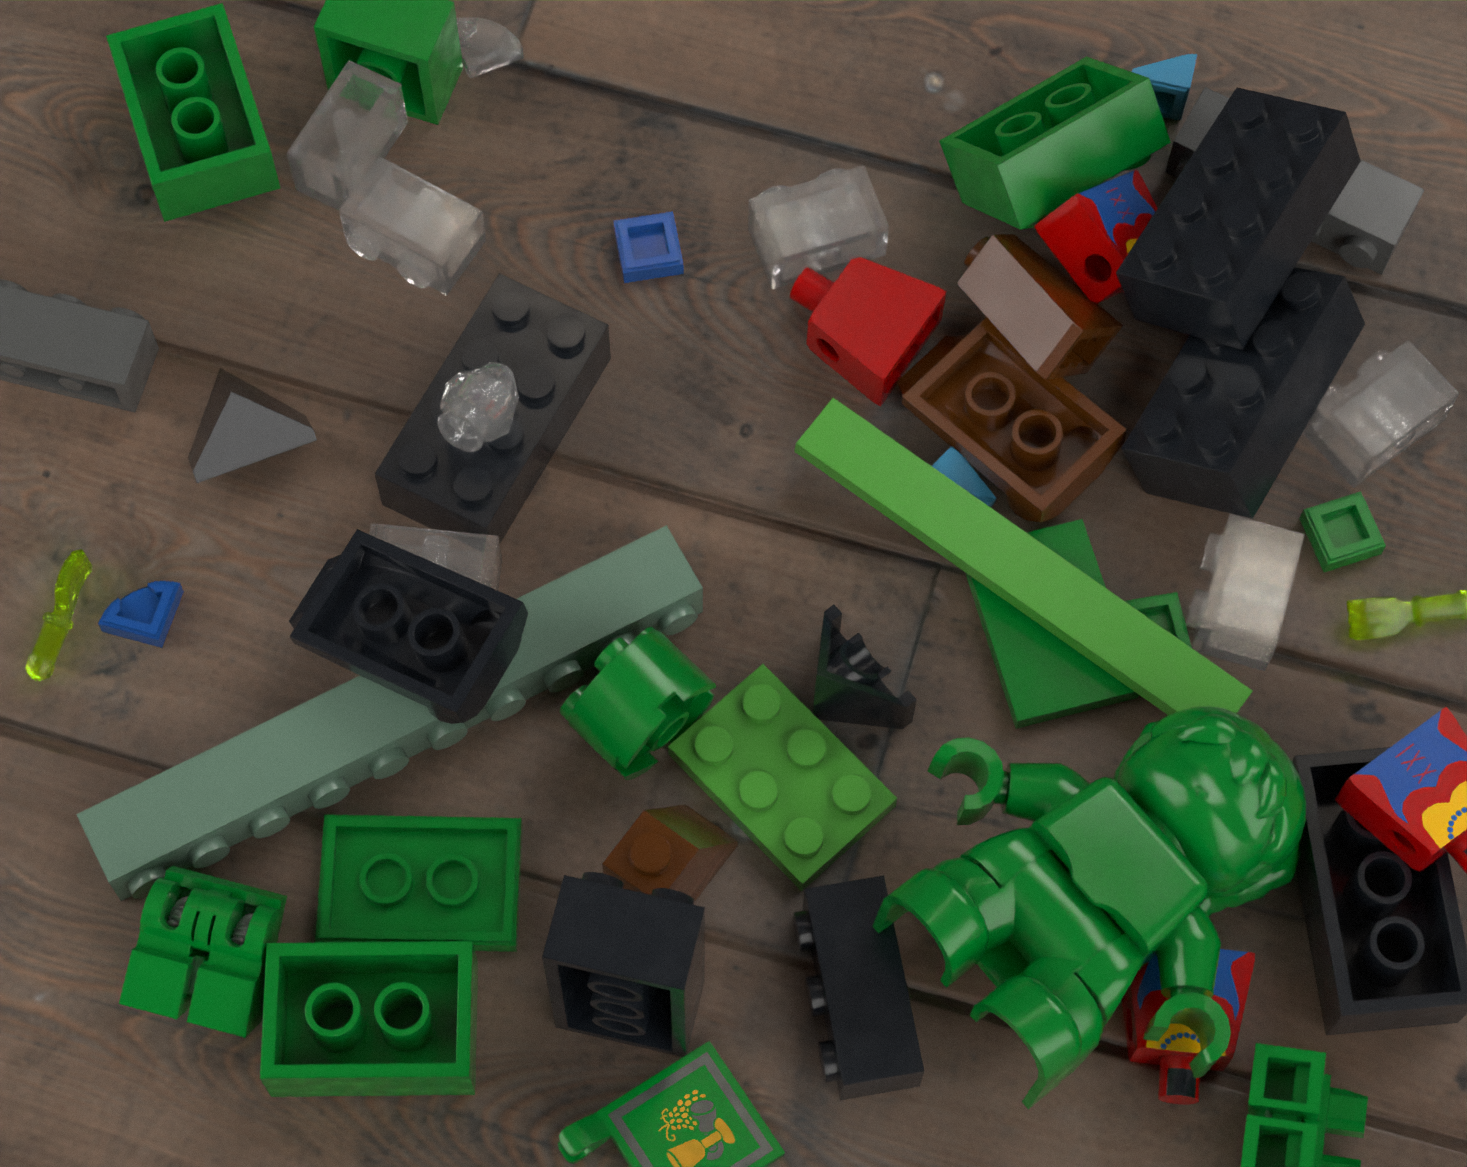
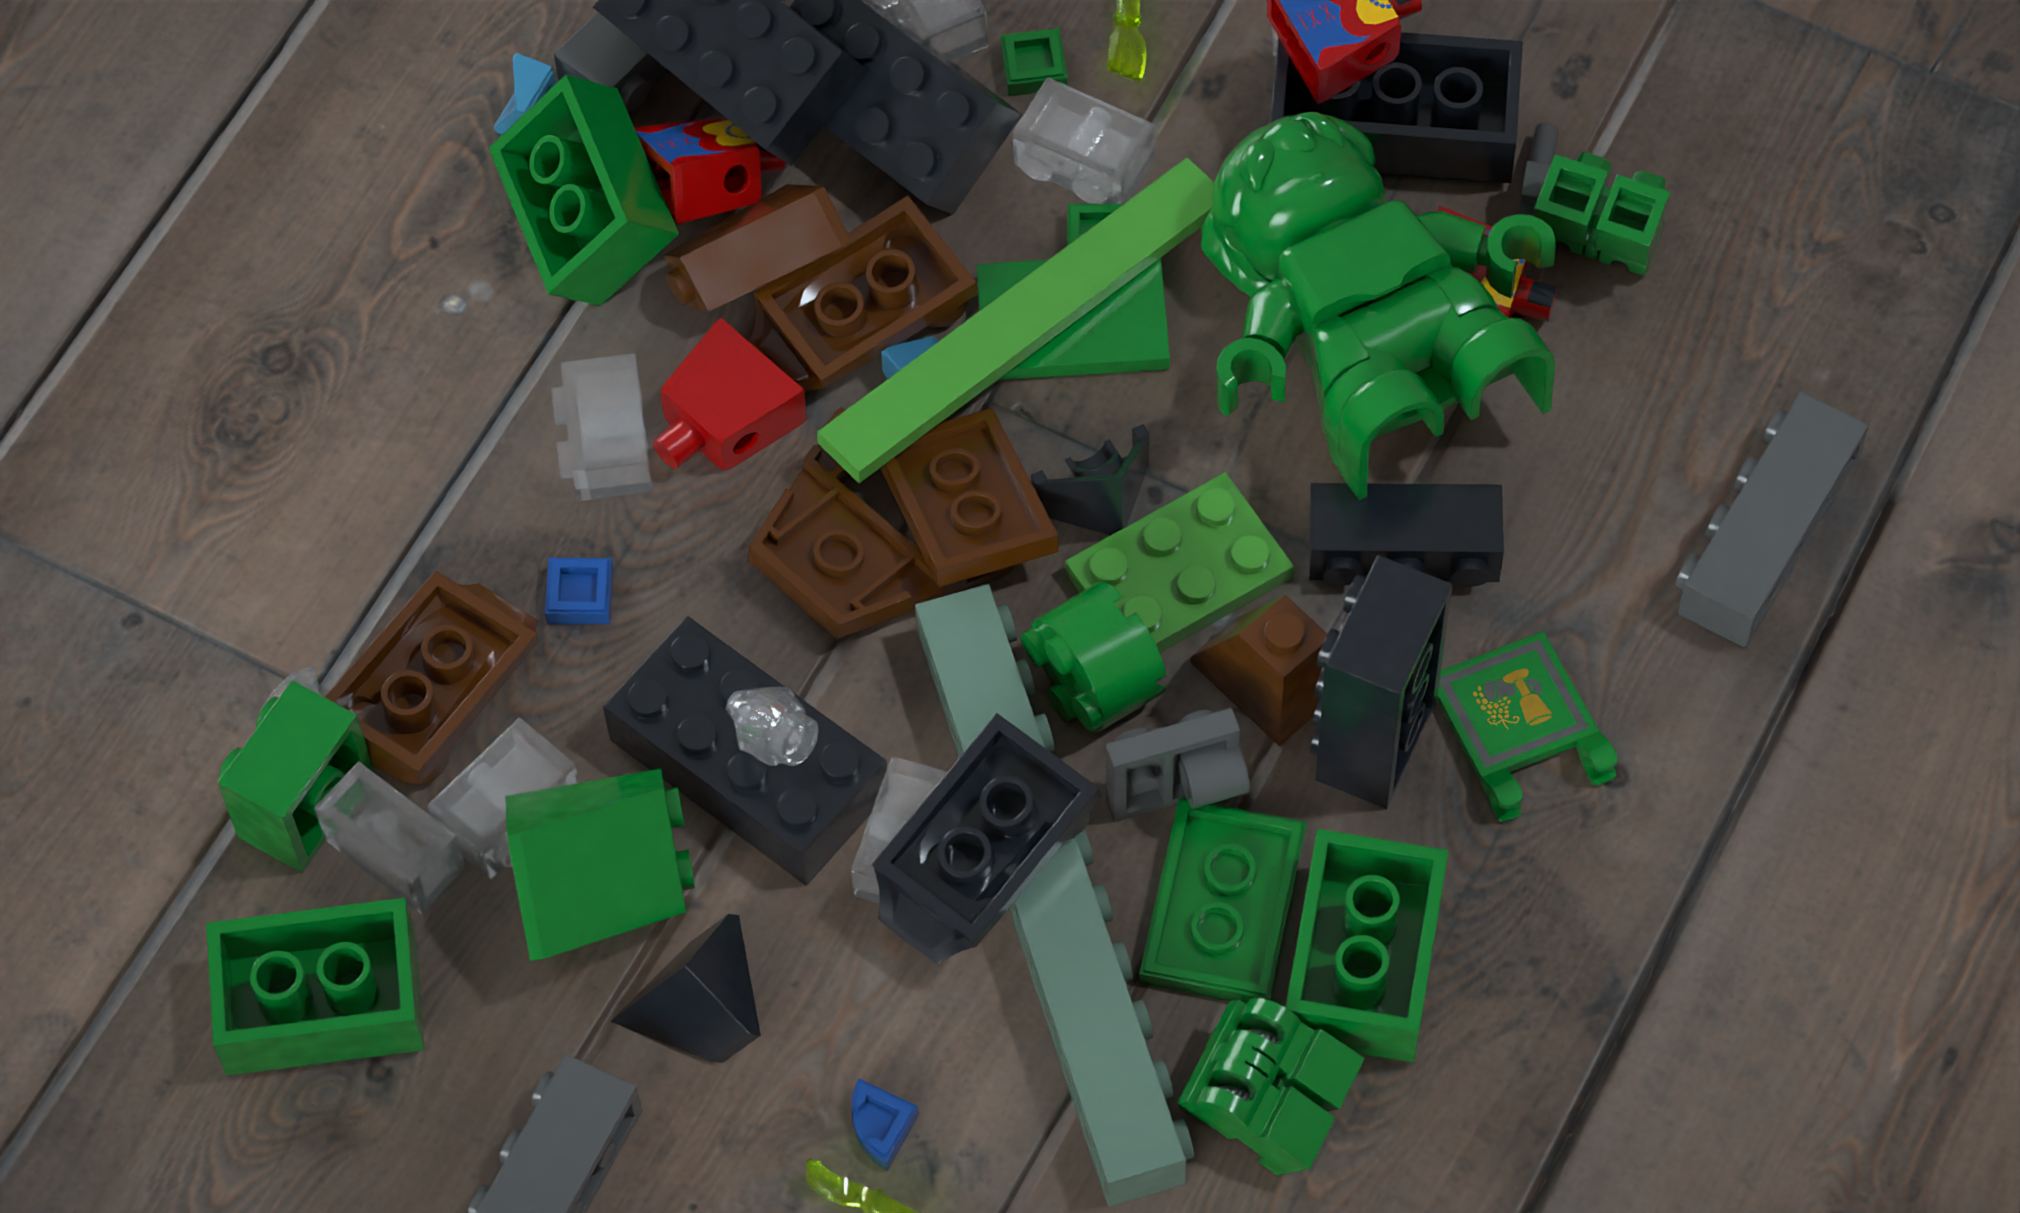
camera: 75 degrees left, 5 degrees down
(333, 293) = (596, 859): none -> green slope
(527, 138) = (433, 674): none -> reddish brown slope
(541, 822) = (1184, 760): none -> dark grey plate
(714, 469) = (842, 555): none -> reddish brown wing
(801, 556) = (969, 499): none -> reddish brown plate
(1356, 1059) = (1538, 165): none -> dark grey bar

